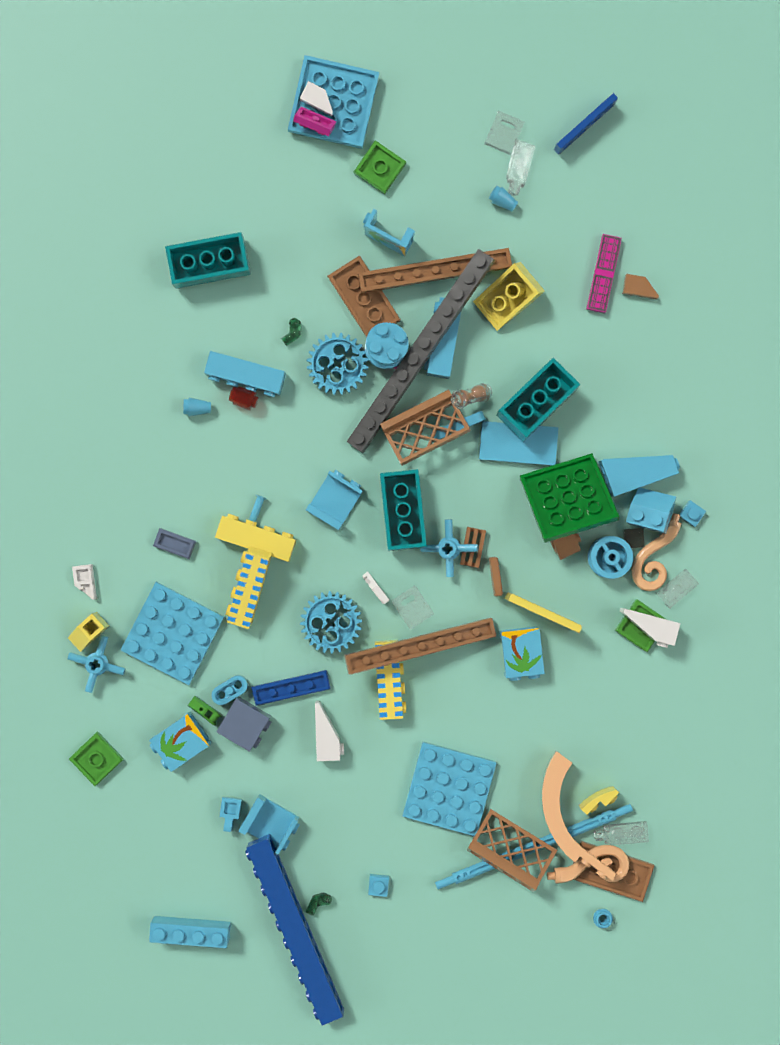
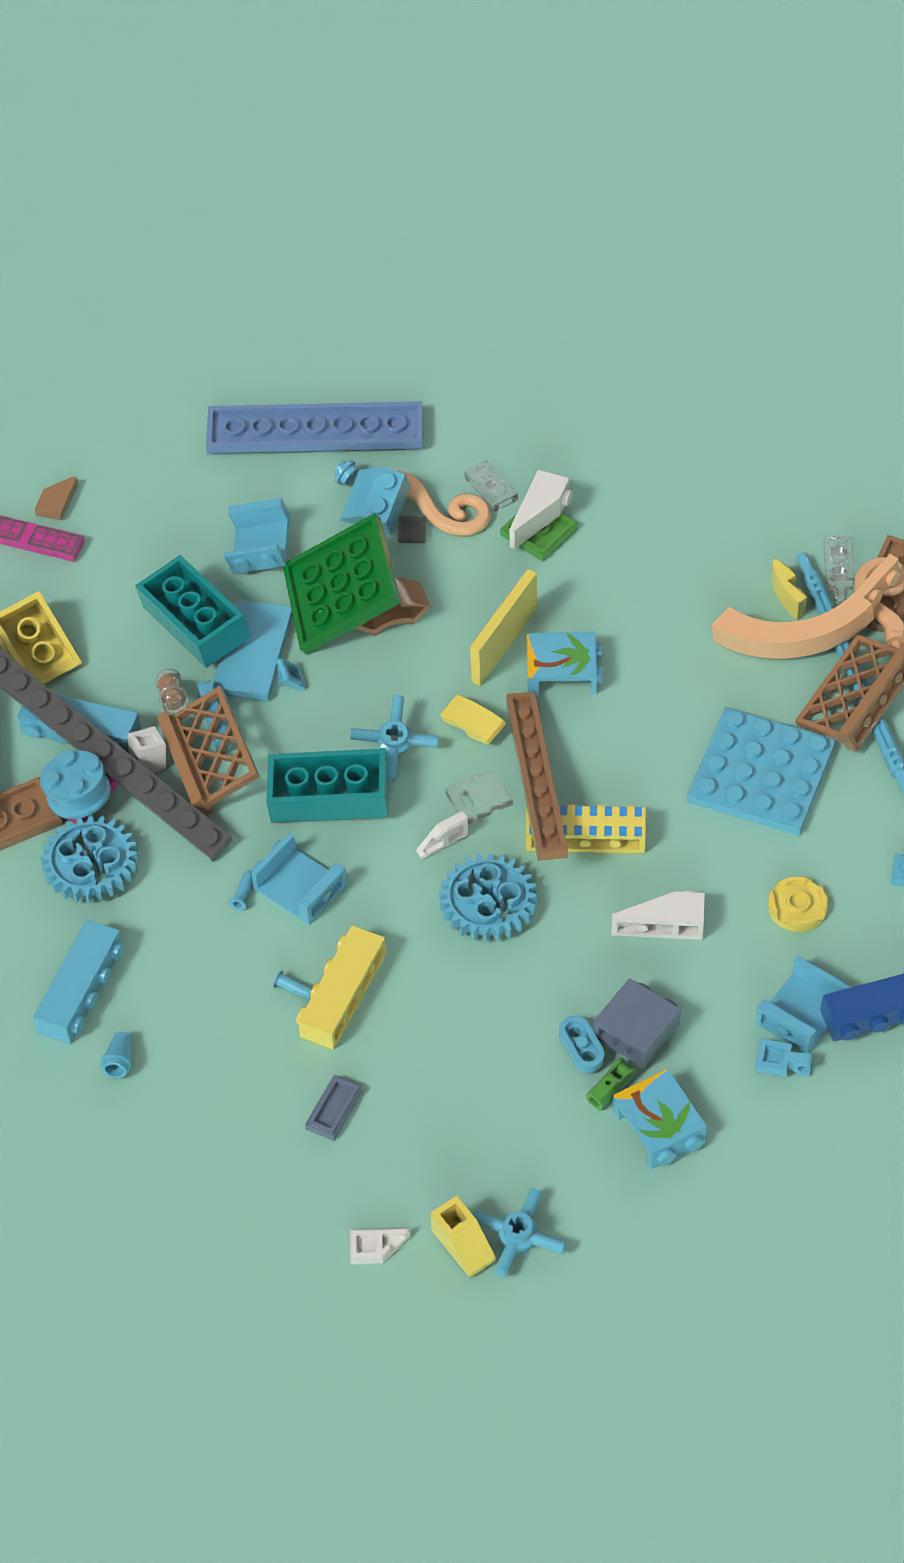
camera: 85 degrees left, 35 degrees down
(96, 758) = (680, 1253): bright green tile -> none
(172, 633) = (480, 1122): medium azure plate -> none
(243, 398) = (116, 986): clear red brick -> none
(249, 587) = (418, 992): light yellow brick -> none
(291, 687) = (586, 962): blue tile -> none
(294, 331) = (27, 914): clear green arm -> none
(326, 465) = (242, 891): none -> medium azure piece
(347, 816) = (798, 904): none -> light yellow tile
(423, 387) = (148, 748): none -> white panel
(470, 597) = (473, 719): none -> light yellow slope
(478, 558) = (410, 712): medium nougat tile -> none
(495, 576) = (444, 686): medium nougat tile -> none
(497, 472) = (290, 675): none -> medium azure slope
(610, 557) = (434, 550): medium azure wheel -> none
(611, 434) = (259, 535): none -> medium azure panel
(634, 472) = (317, 509): medium azure slope -> none
(677, 486) = (345, 472): none -> medium azure plate
(692, 513) = (387, 459): medium azure plate -> none
(719, 458) = (315, 427): none -> medium blue plate

